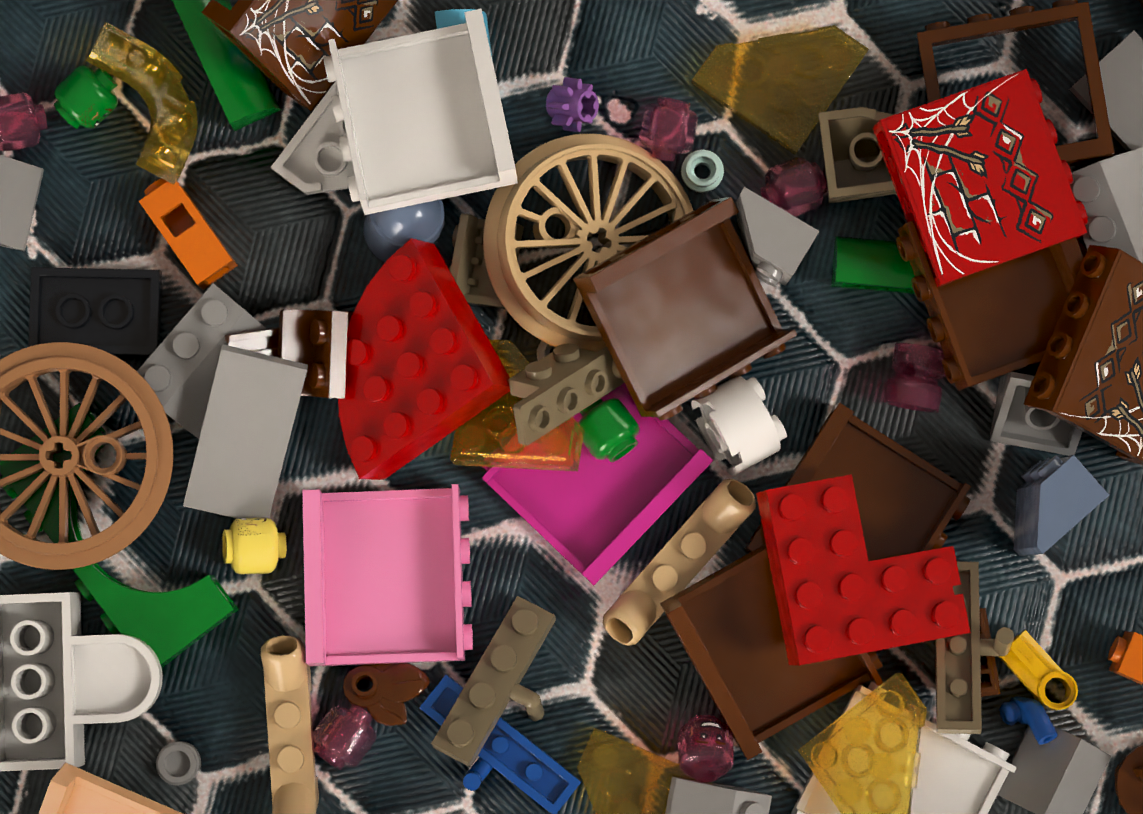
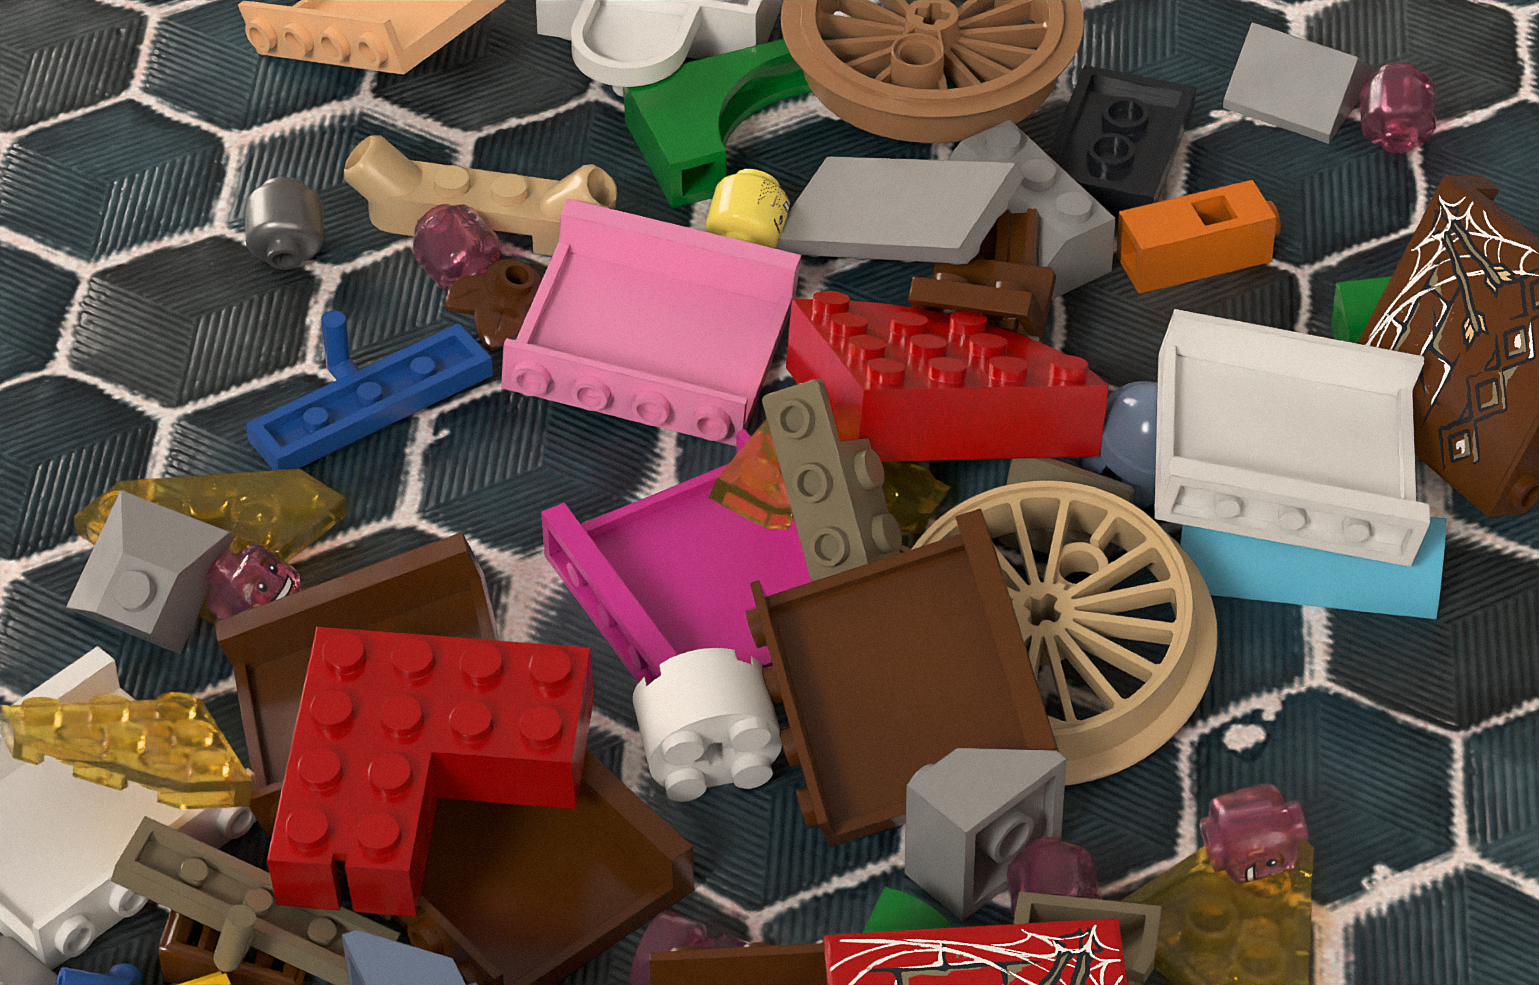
camera: 110 degrees right, 40 degrees down
(86, 97) = (1409, 172): green head -> none
(158, 82) = (1344, 232): clear yellow plate -> none
(178, 763) = (499, 113): light grey tile -> none
(496, 682) = (456, 395): dark tan plate -> none
(572, 104) = (1248, 655): medium lavender gear -> none
(609, 429) = (765, 560): green head -> none
(668, 128) = (1195, 761): clear pink head -> none
(679, 561) = (532, 614): tan plate -> none
(706, 158) = (1118, 799): light aqua plate -> none
(738, 75) = (1253, 833): none -> clear pink head

